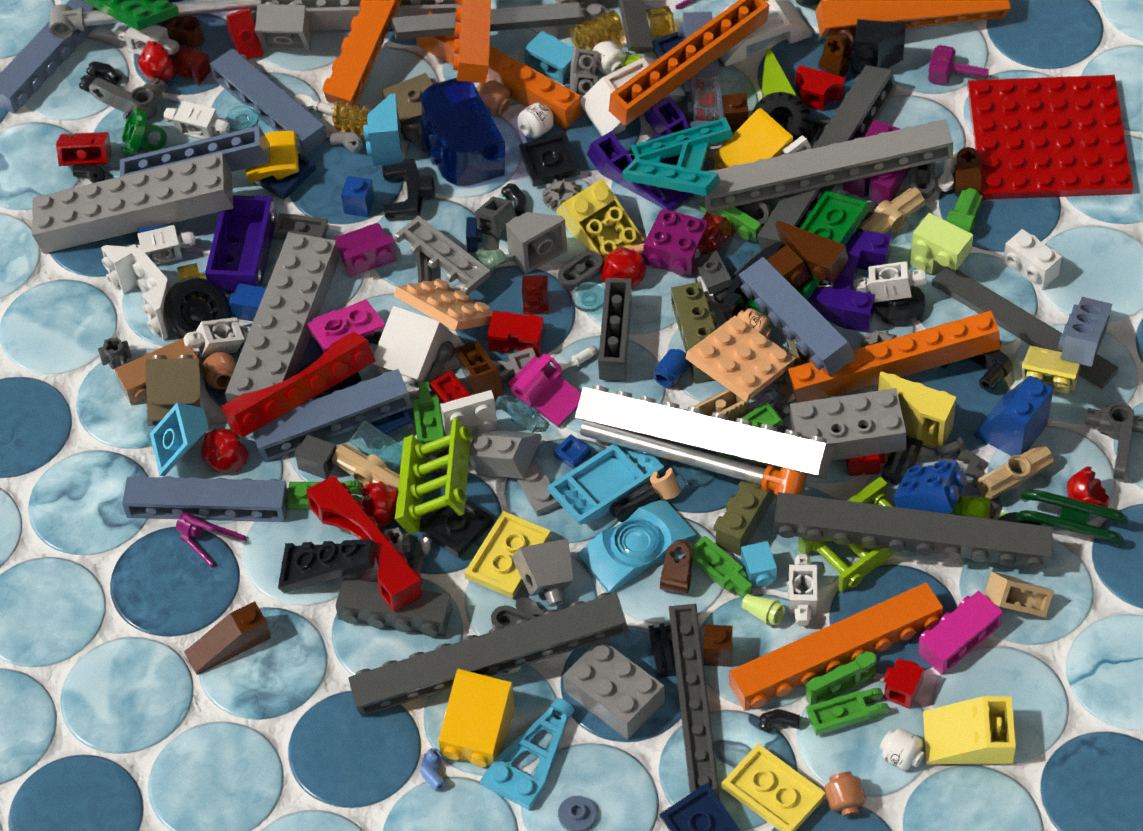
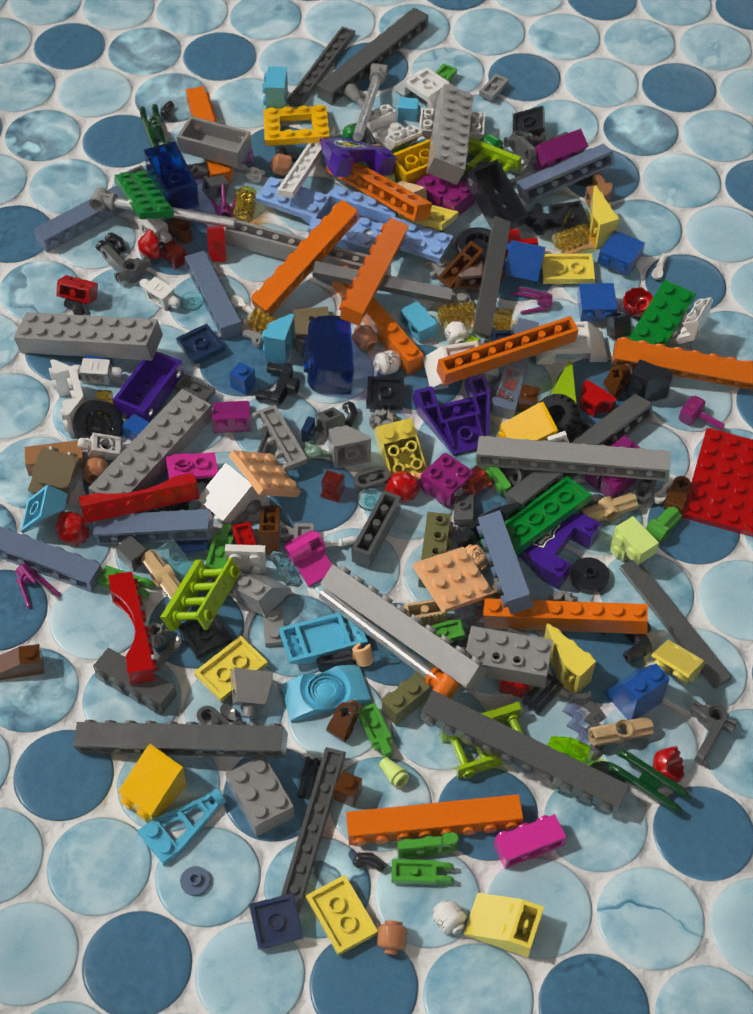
camera: 15 degrees right, 0 degrees up
(114, 352) = (32, 435): dark grey gear -> none
(137, 132) = (116, 290): green tile -> none
(240, 148) = (171, 320): sand blue brick -> none
(282, 157) = (196, 332): yellow slope -> none
(283, 26) = (243, 245): light grey slope -> none
(315, 564) = (98, 631): black wing -> none
(380, 502) = (158, 600): red hair -> none
(430, 767) = (106, 810): medium blue arm -> none
(515, 332) = (307, 508): red brick -> none
(572, 452) = (309, 608): blue tile -> none
(583, 70) = (434, 337): light grey slope -> none
(671, 368) = (403, 570): blue brick -> none
(688, 174) = (481, 414): teal plate -> none
(759, 564) = (404, 738): medium azure brick -> none
(790, 266) = (515, 524): reddish brown brick -> none
(802, 604) = (427, 780): white piece -> none
(821, 255) = (540, 522): reddish brown slope -> none
(890, 281) = (586, 557): white piece -> none
(903, 682) = (471, 865): red brick -> none
(931, 487) = (550, 724): blue brick -> none
(1018, 594) = (583, 827): tan arch -> none
(1032, 259) = (699, 574): white brick -> none
(1084, 331) = (714, 642): sand blue brick -> none

